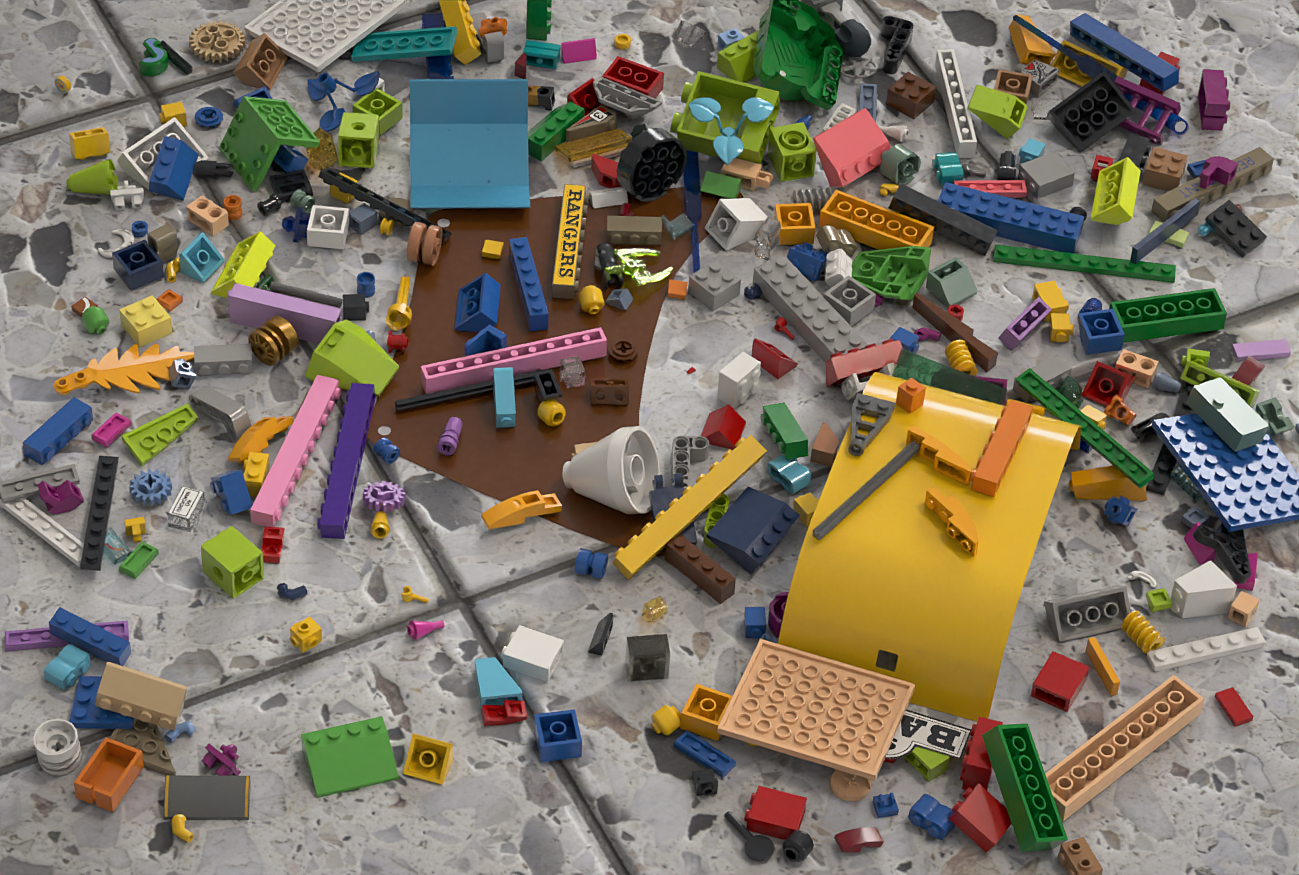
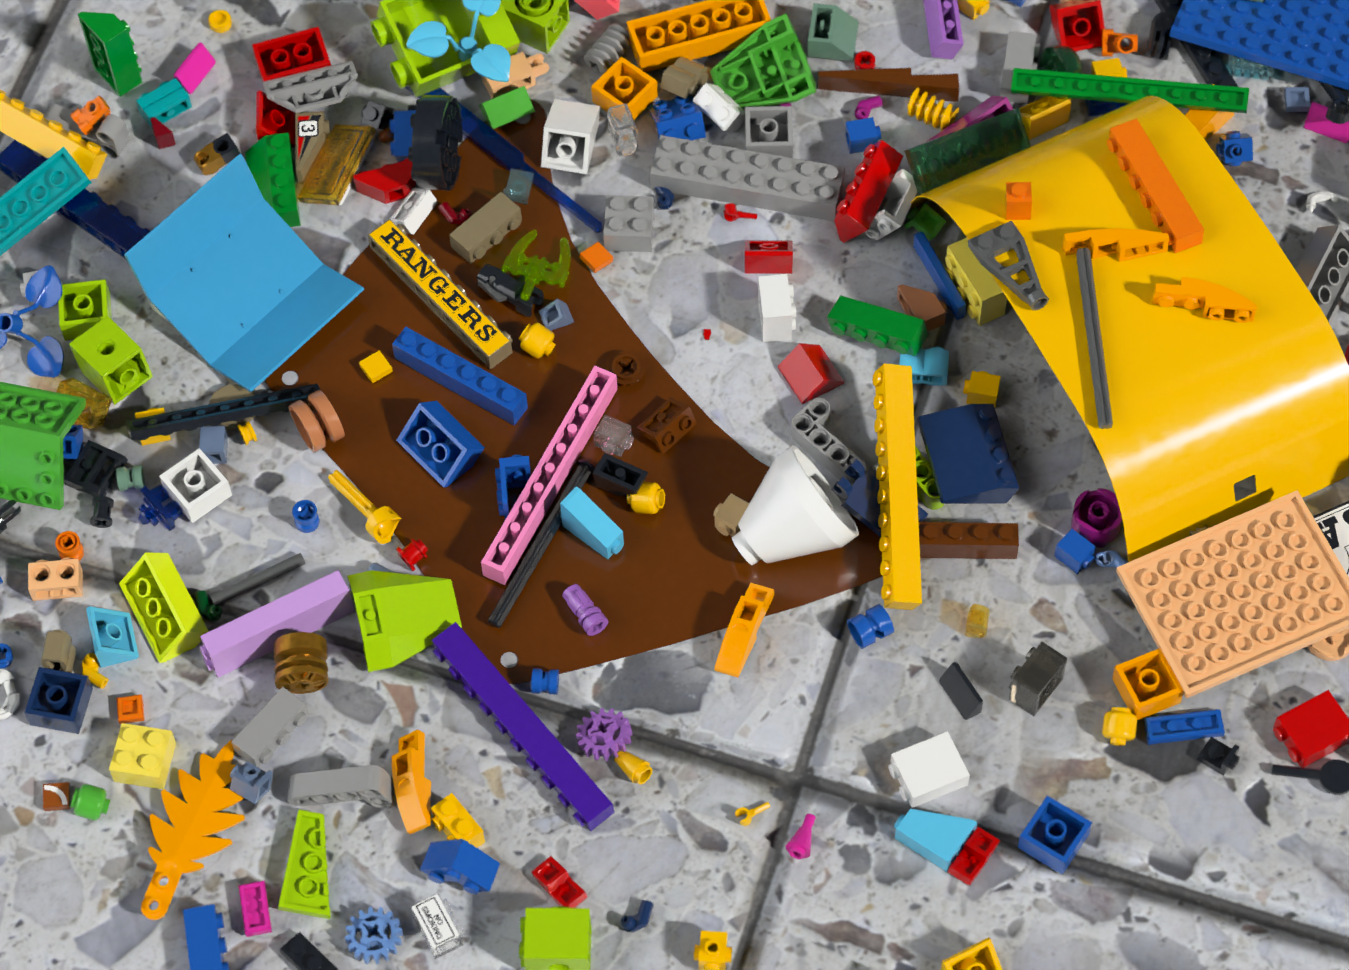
camera: 40 degrees left, 15 degrees up
(295, 451) = (461, 763): bright pink brick -> none
(355, 307) = (325, 551): black brick -> none

